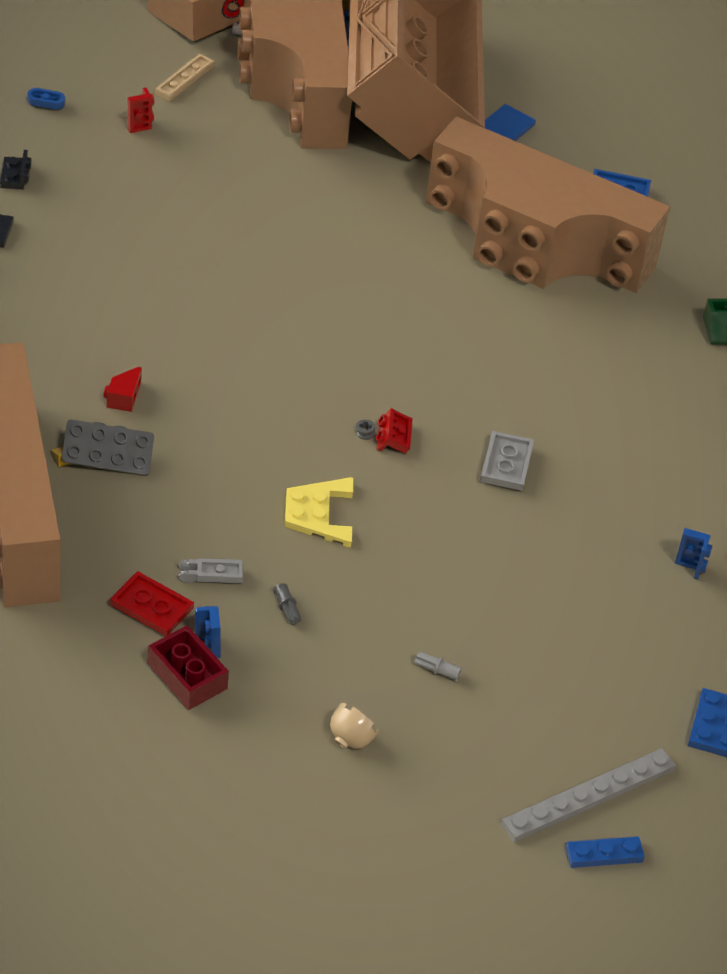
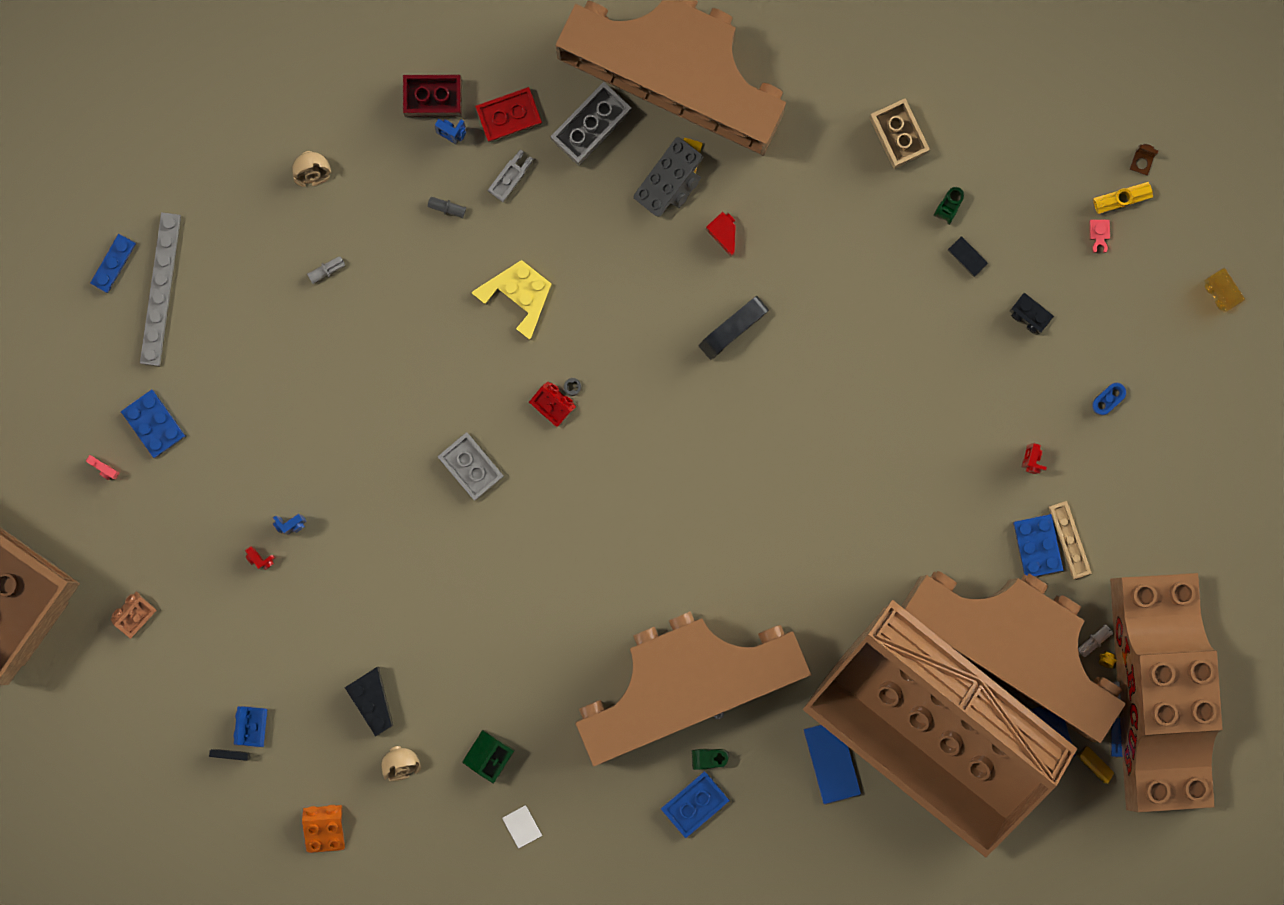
camera: 135 degrees right, 40 degrees up
(106, 529) = (591, 123): none -> light grey brick
(207, 92) = (1038, 545): none -> blue plate
(209, 336) = (733, 327): none -> black beam

